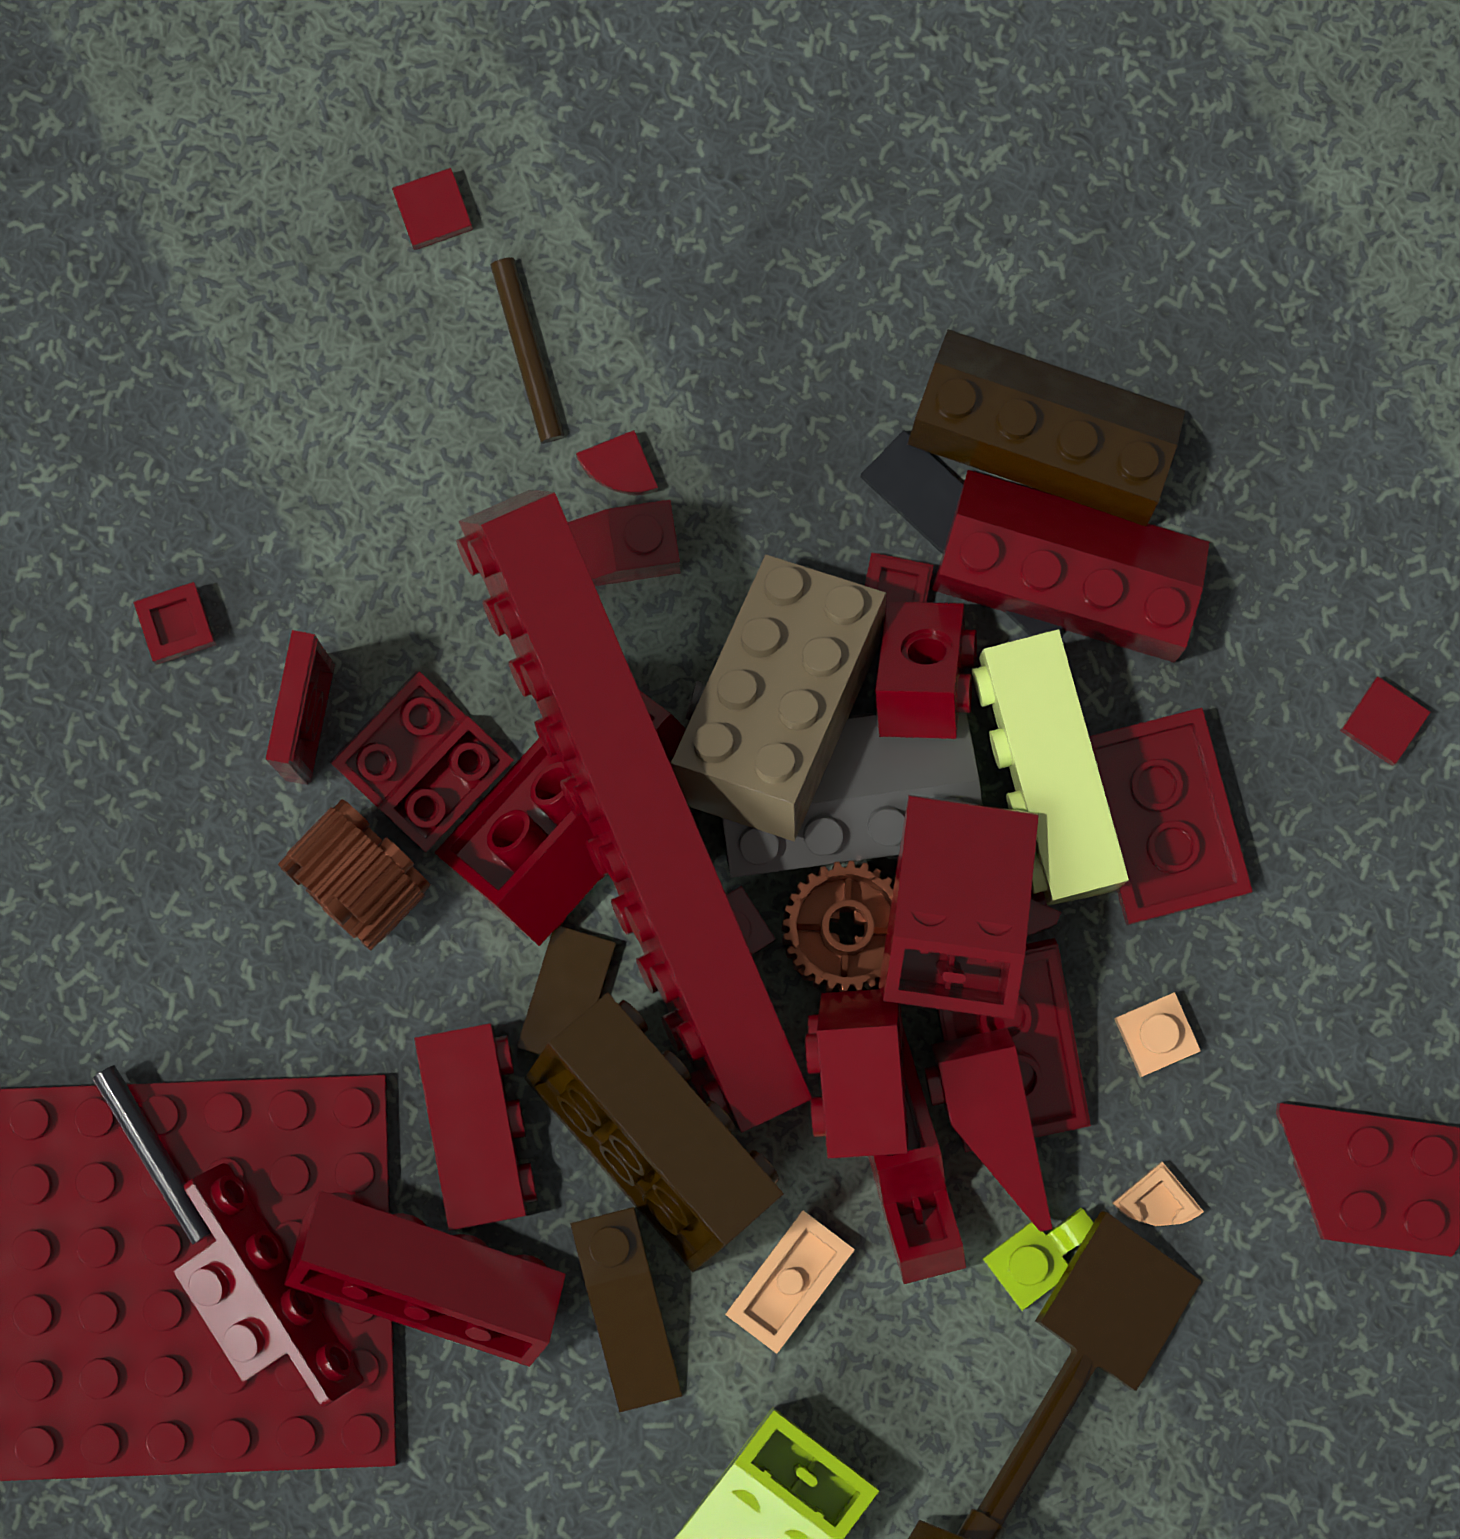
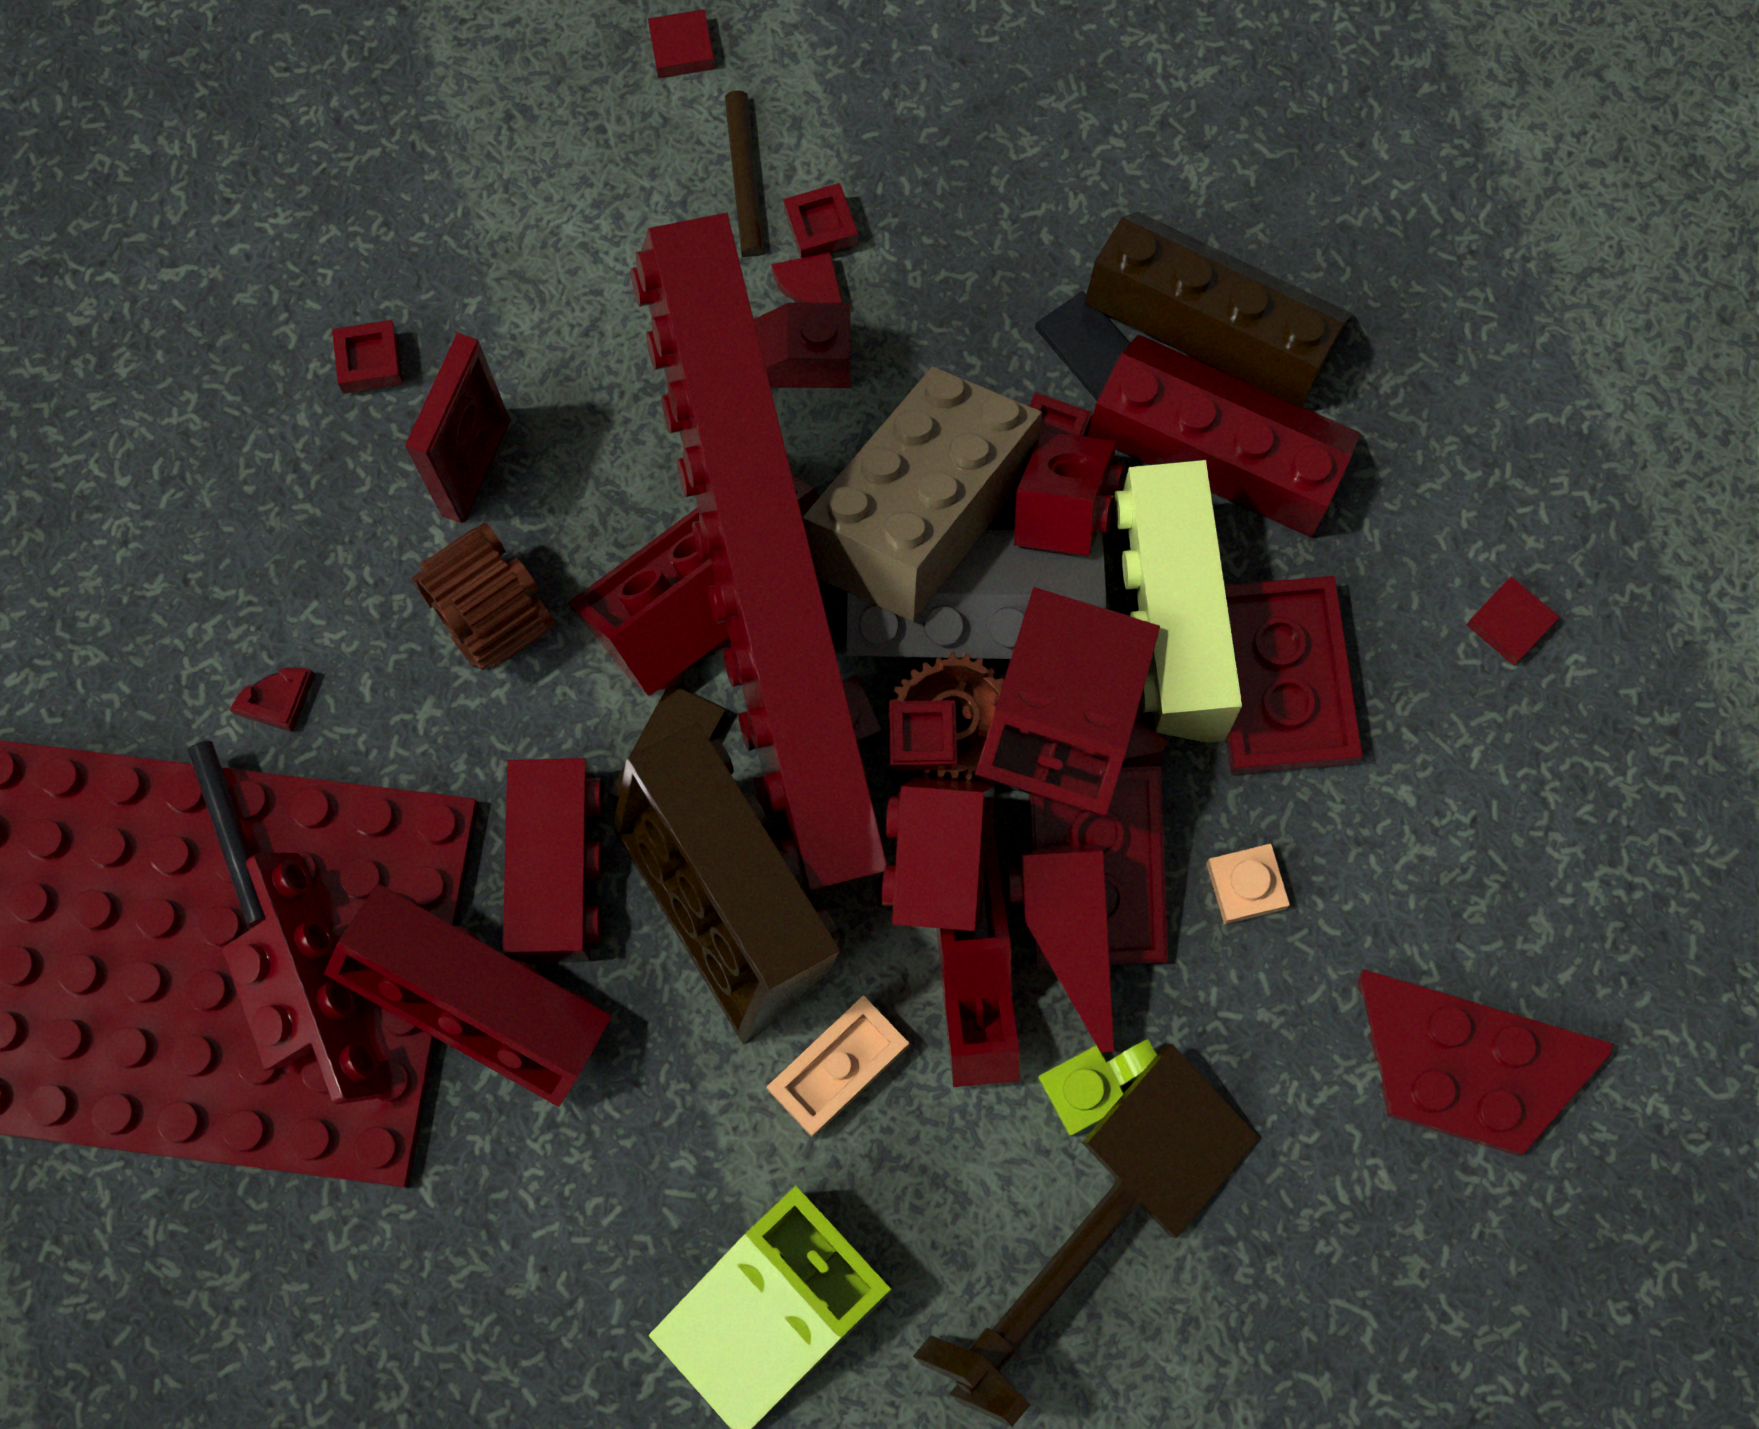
camera: 15 degrees right, 10 degrees down
(160, 1002) = (276, 698): none -> dark red tile
(421, 761) = (572, 515): dark red slope -> none
(619, 397) = (821, 221): none -> dark red plate
(626, 1309) = (667, 1063): dark brown slope -> none
(822, 954) = (923, 735): none -> dark red tile
(1158, 1199) = (1226, 1048): light nougat tile -> none

